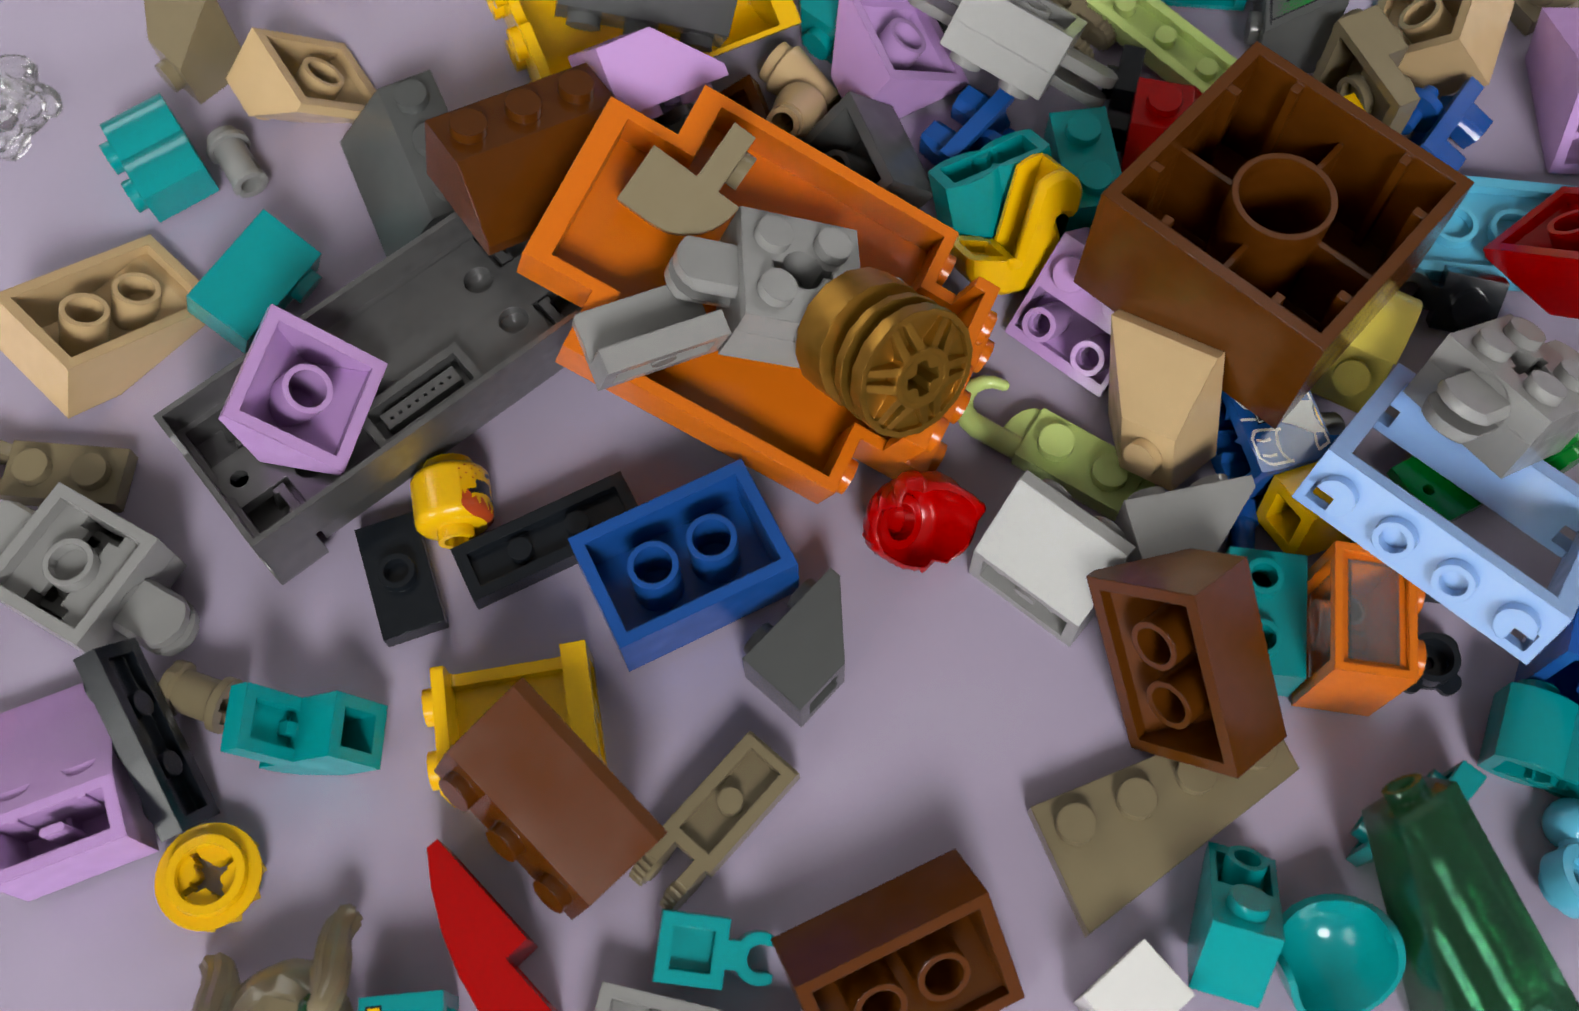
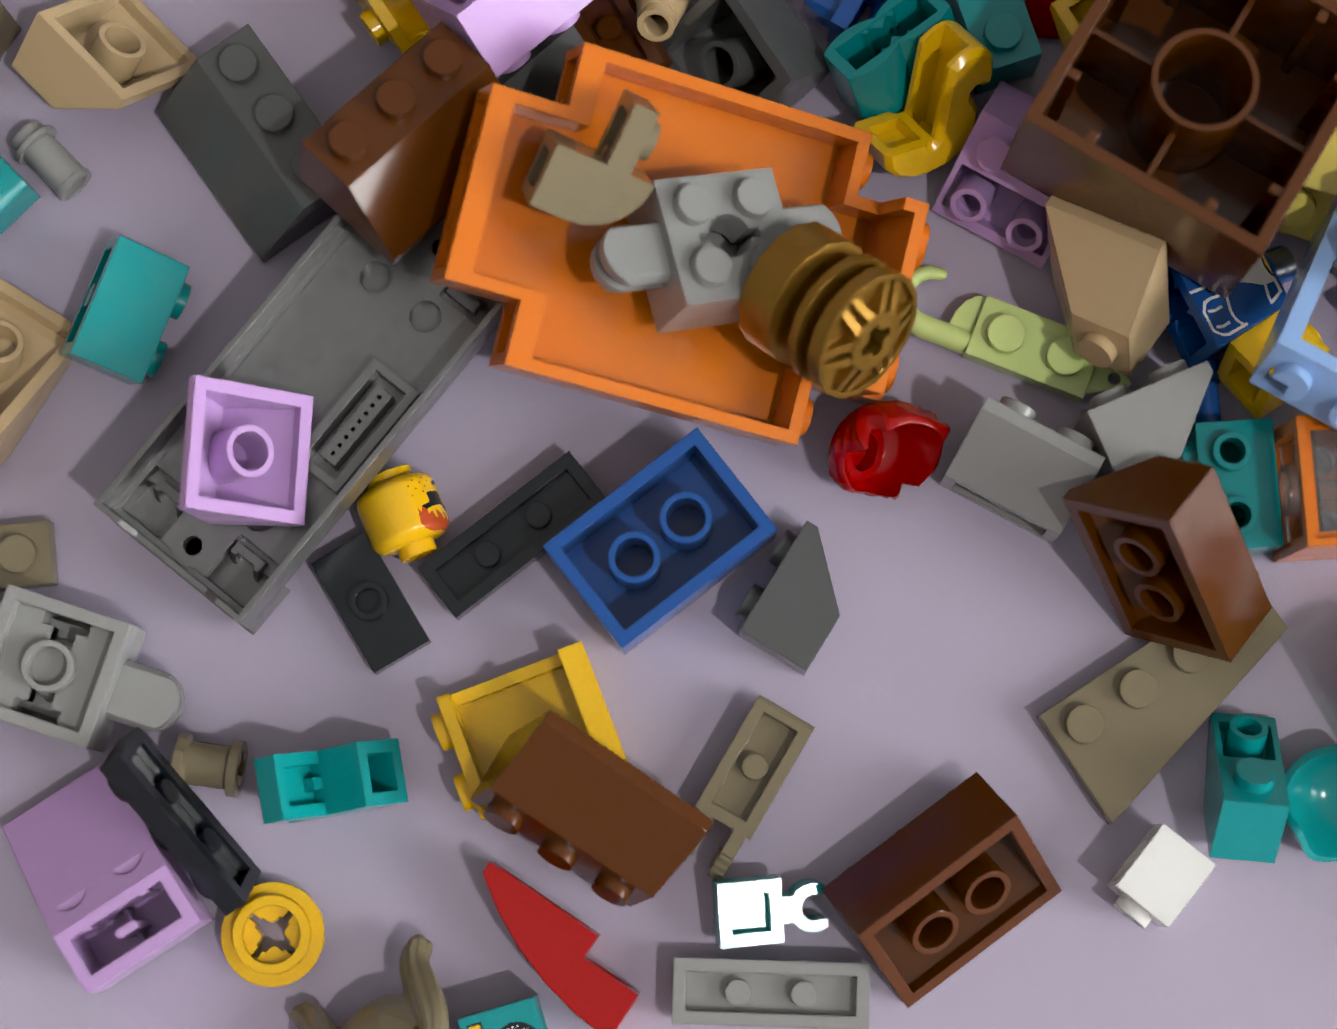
camera: 10 degrees left, 15 degrees up
(646, 335) = (585, 337): light grey panel -> none

